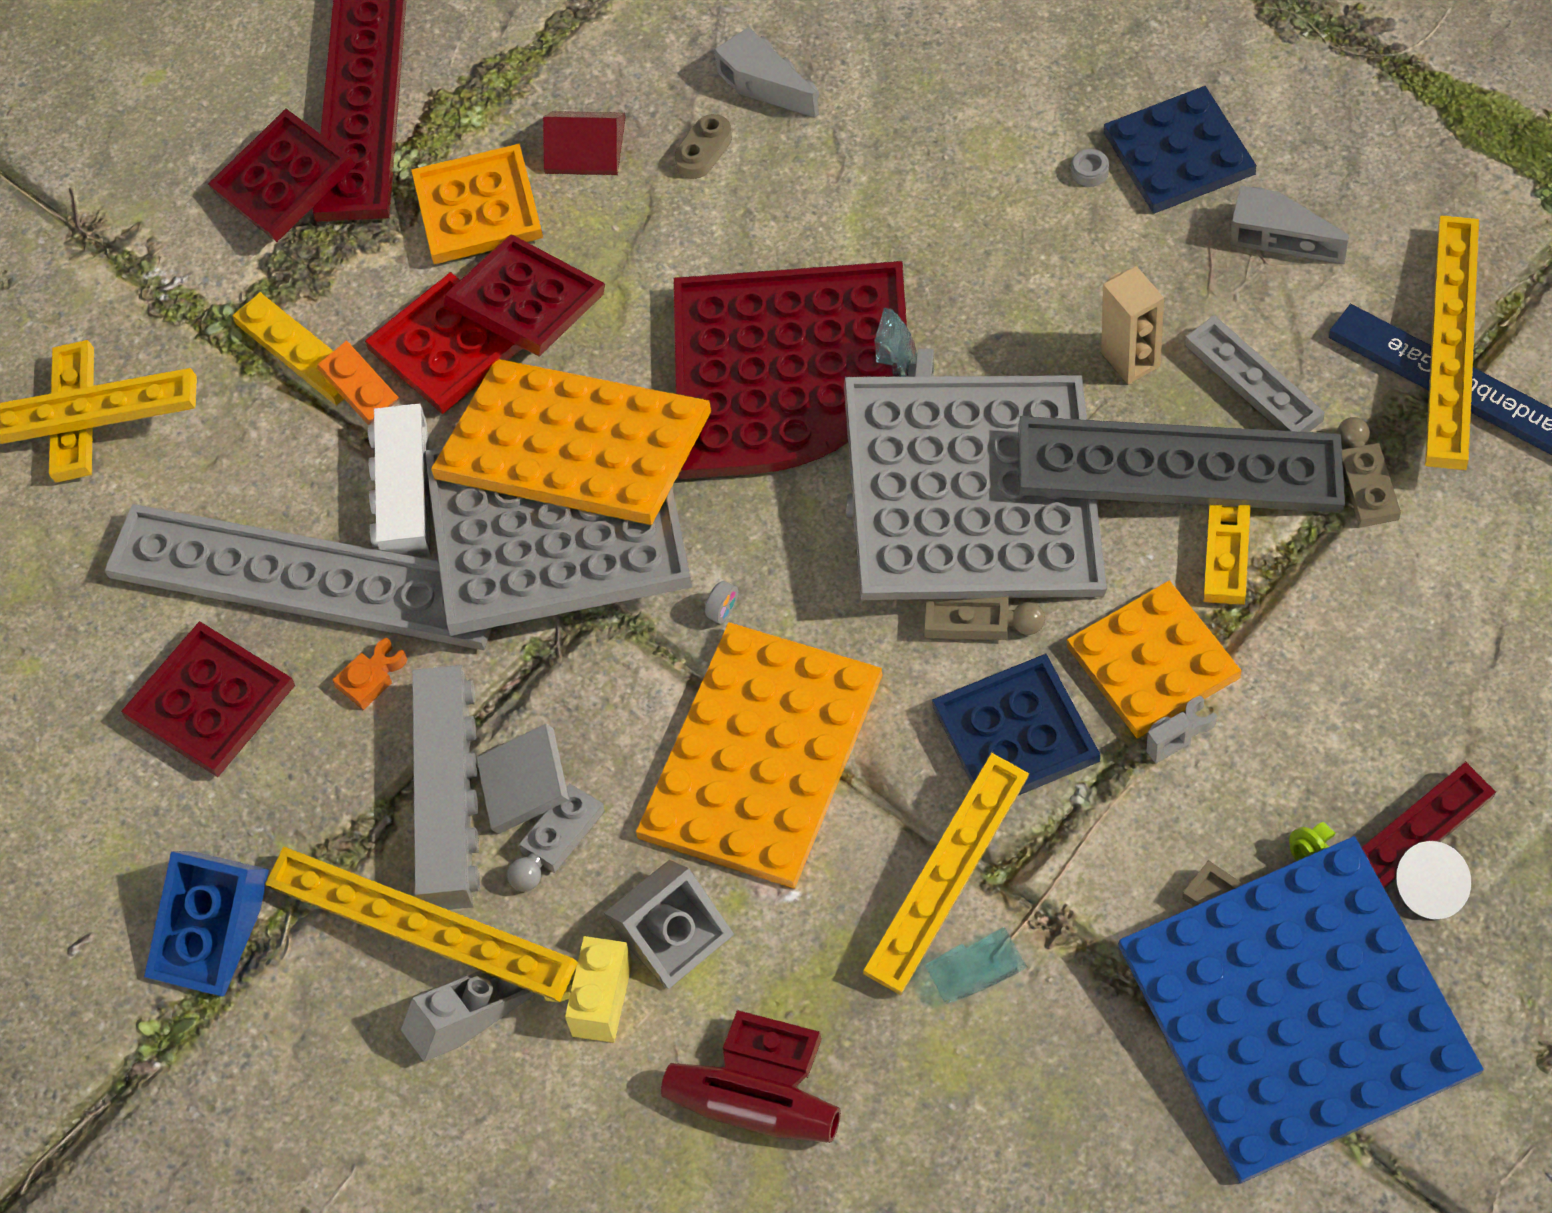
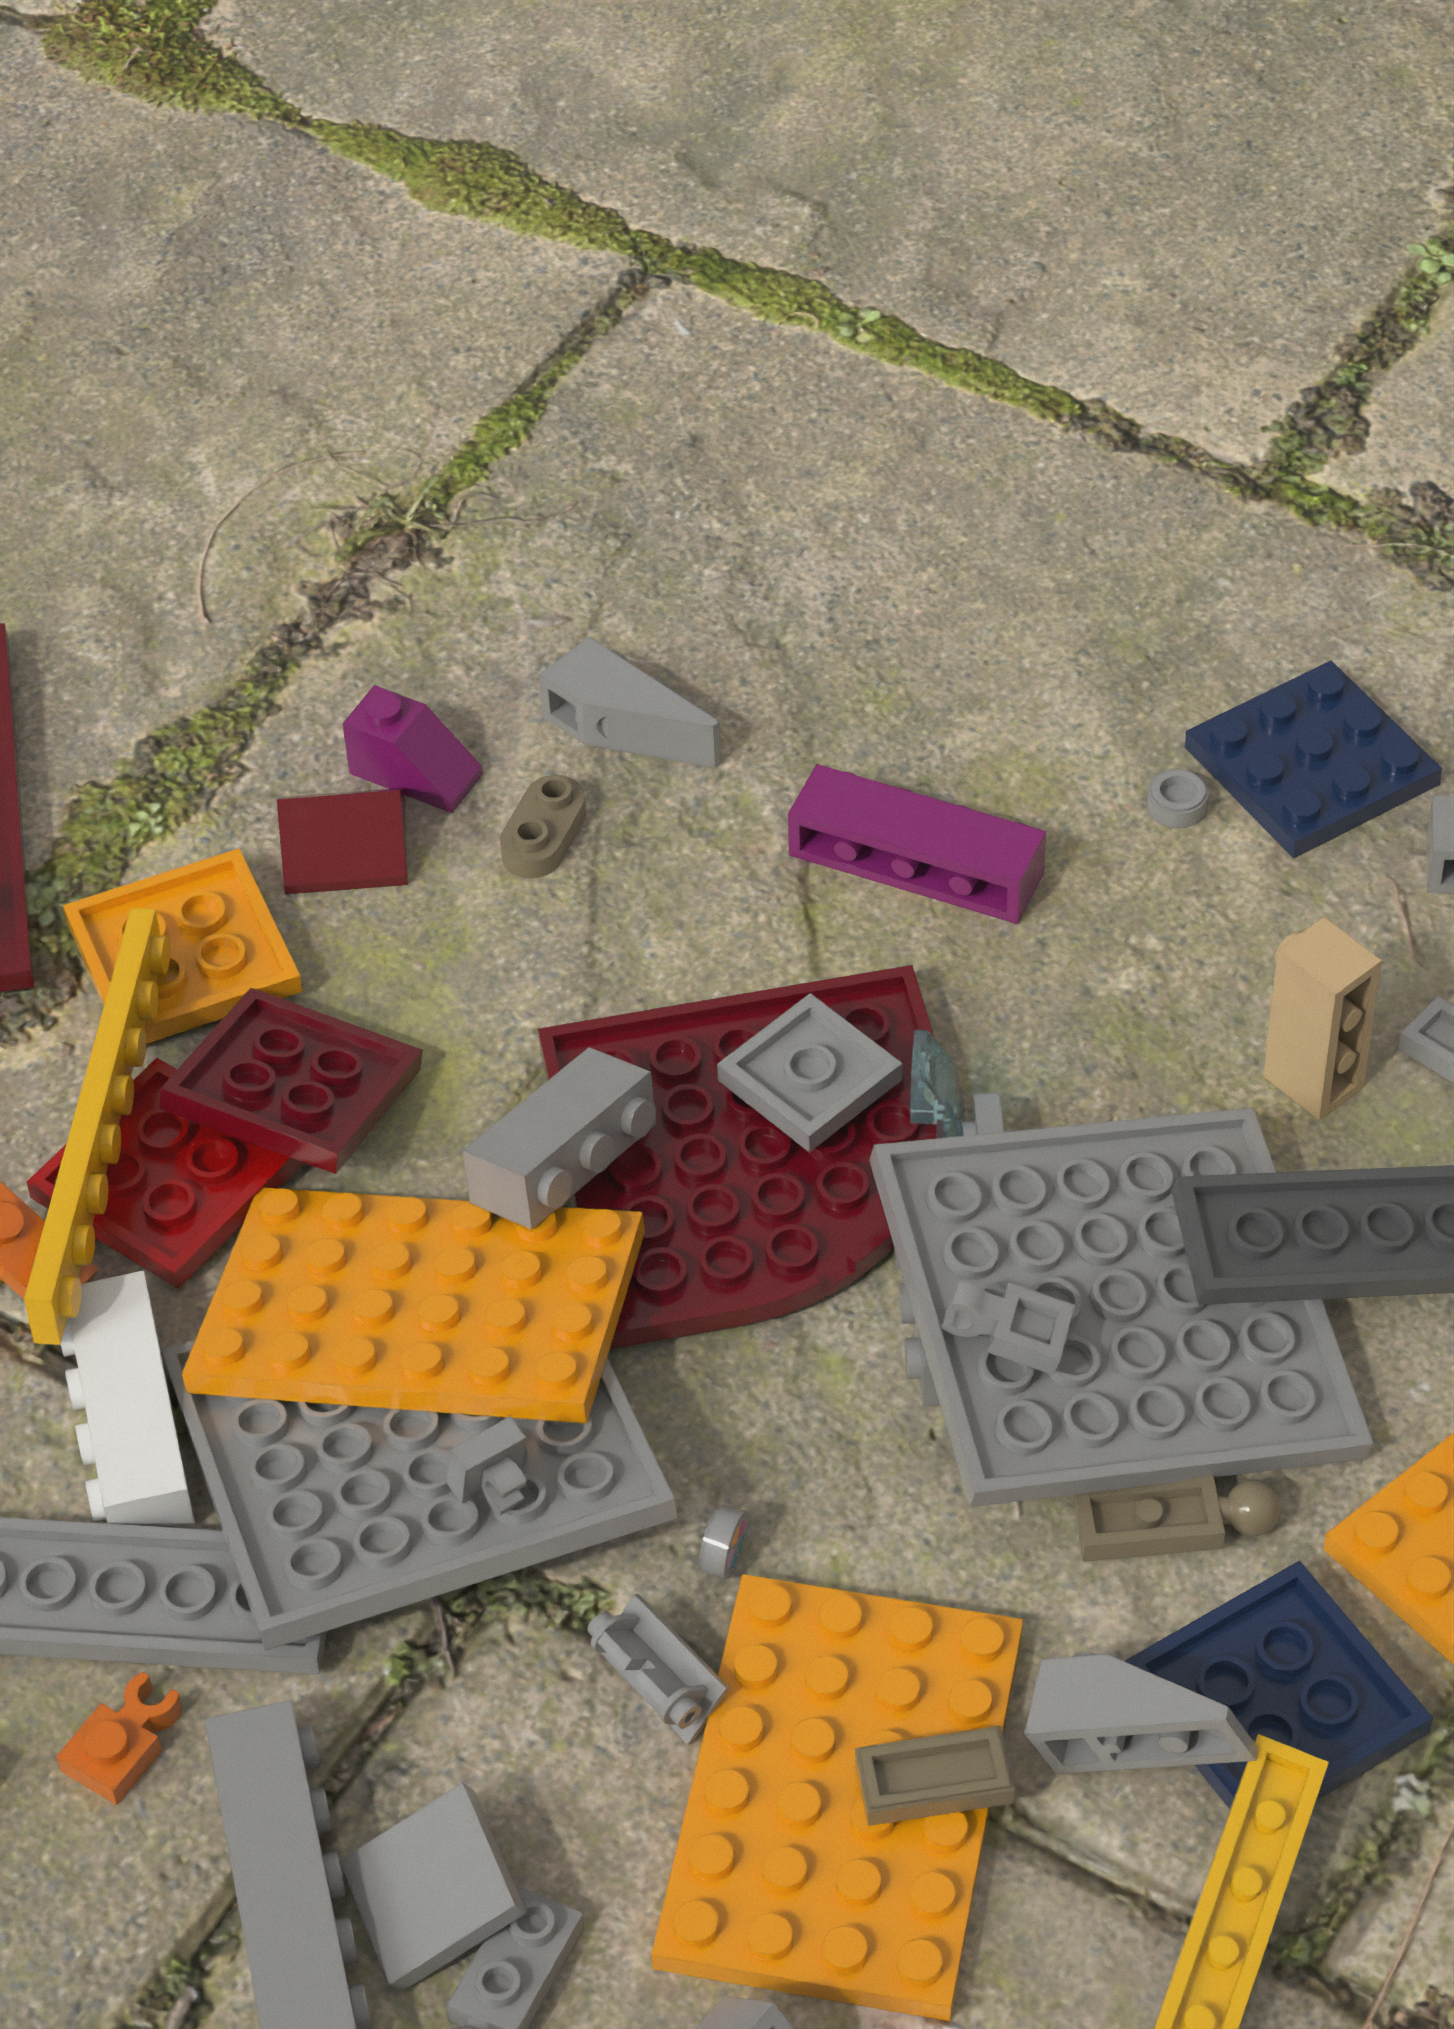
camera: 15 degrees left, 10 degrees down
(404, 313) = (95, 1129): none -> yellow plate
(588, 545) = (490, 1465): none -> light grey tile
(631, 89) = (409, 748): none -> magenta slope
(668, 350) = (559, 1138): none -> light grey brick
(670, 669) = (659, 1666): none -> light grey hinge
(809, 752) = (934, 1775): none -> dark tan tile
(824, 324) = (809, 1072): none -> light grey plate
(908, 498) = (1021, 1324): none -> light grey plate
(914, 731) = (1114, 1716): none -> light grey slope
(922, 181) = (917, 843): none -> magenta brick

